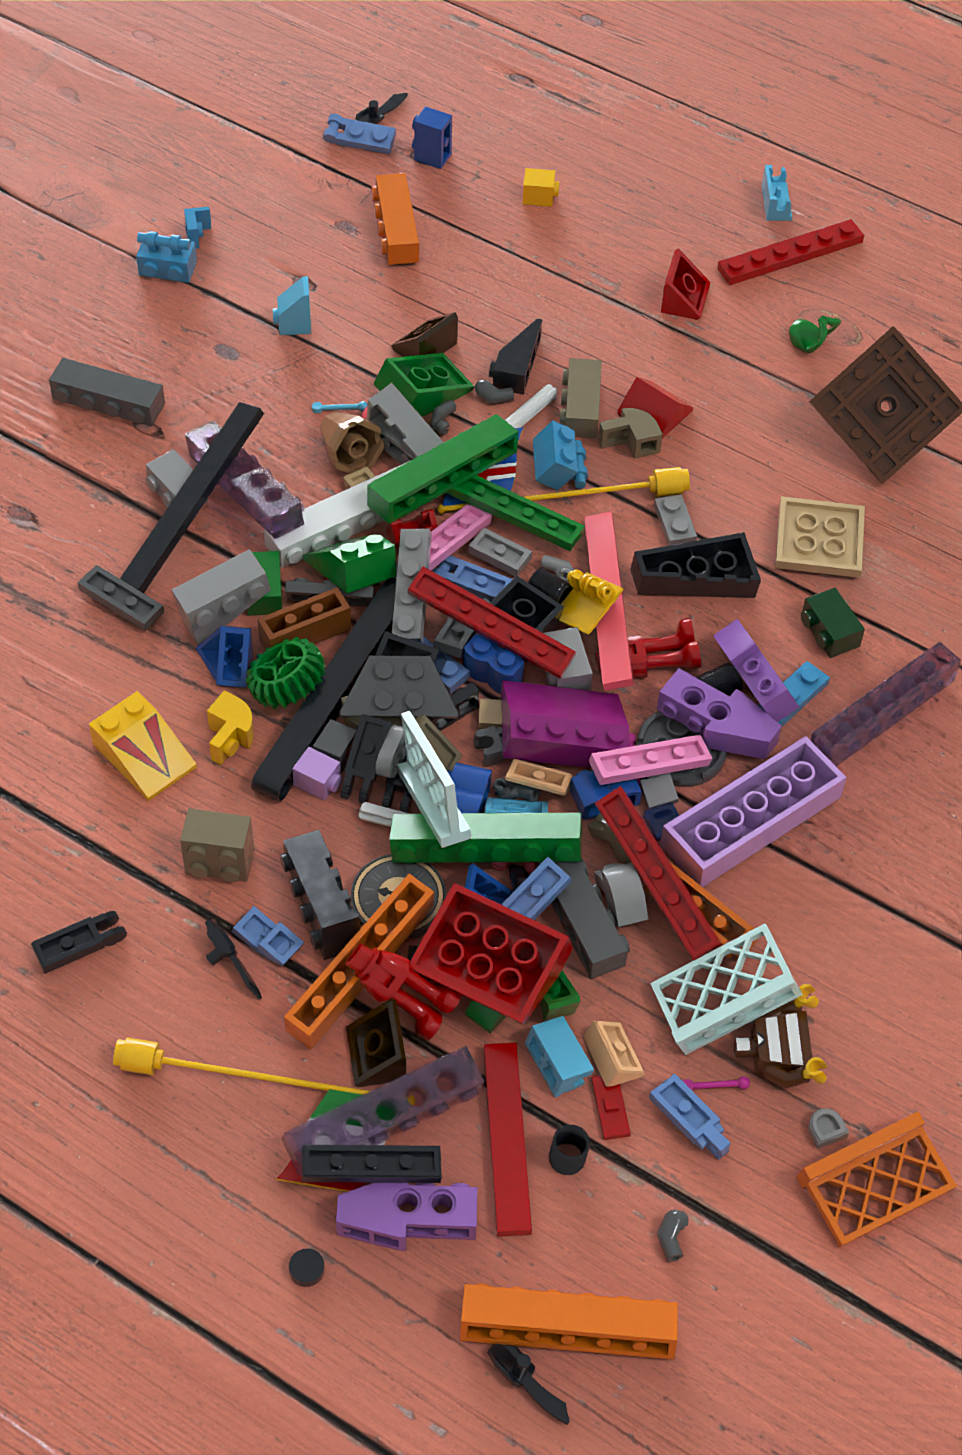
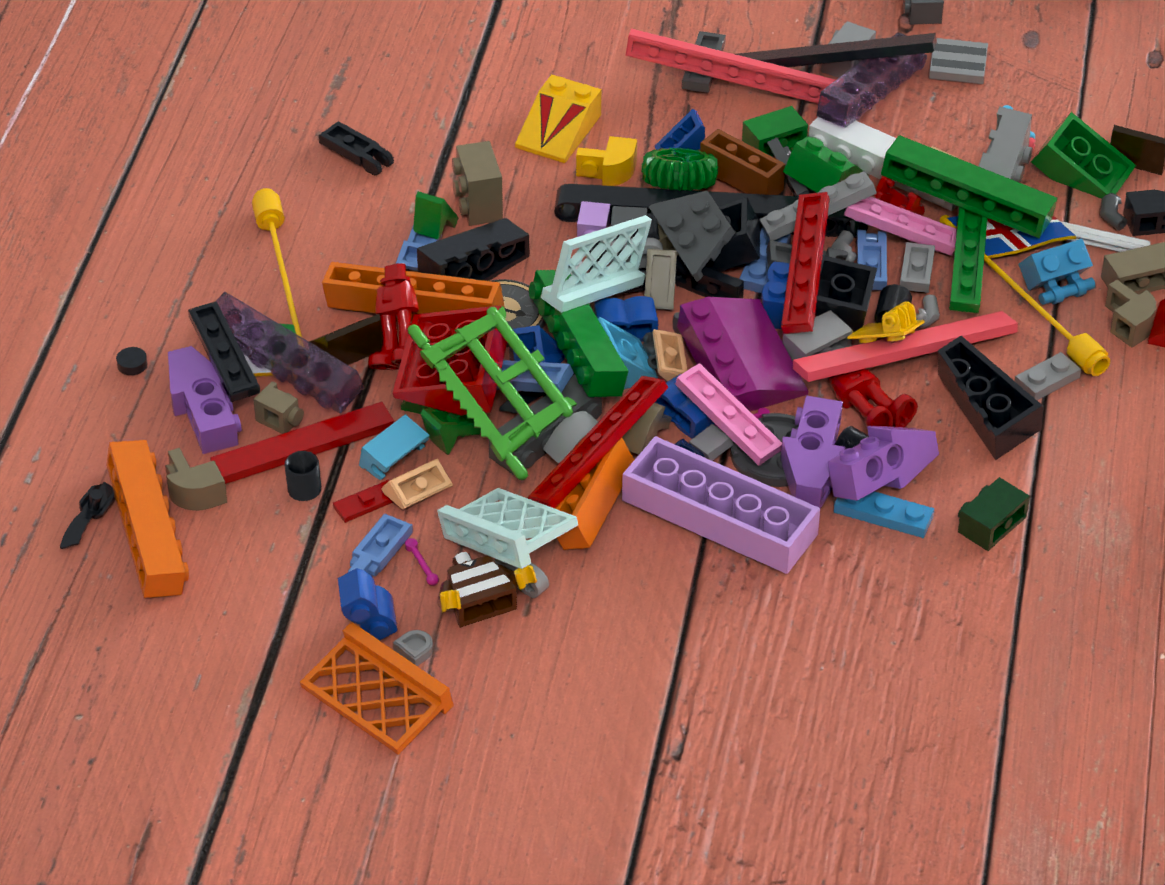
camera: 70 degrees right, 10 degrees down
(160, 577) = (726, 66): none -> coral tile
(220, 594) = (727, 98): light grey wedge -> none
(223, 402) = (958, 61): none -> light grey tile
(226, 948) = (390, 227): black piece -> none
(243, 903) = (432, 215): none -> green slope
(294, 309) = (1102, 54): medium azure slope -> none
(351, 441) = (965, 130): medium nougat cone -> none
(439, 414) = (1055, 182): dark grey arm -> none
(457, 1142) = (277, 409): none -> dark tan brick
(536, 1264) = (196, 486): none -> dark tan brick
(610, 915) = (533, 424): none -> bright green piece
(668, 1232) = (256, 565): dark grey arm -> none
(787, 1146) = (367, 604): none -> blue brick
(820, 537) = (1101, 481): tan plate -> none
(886, 704) = (908, 569): clear purple brick -> none

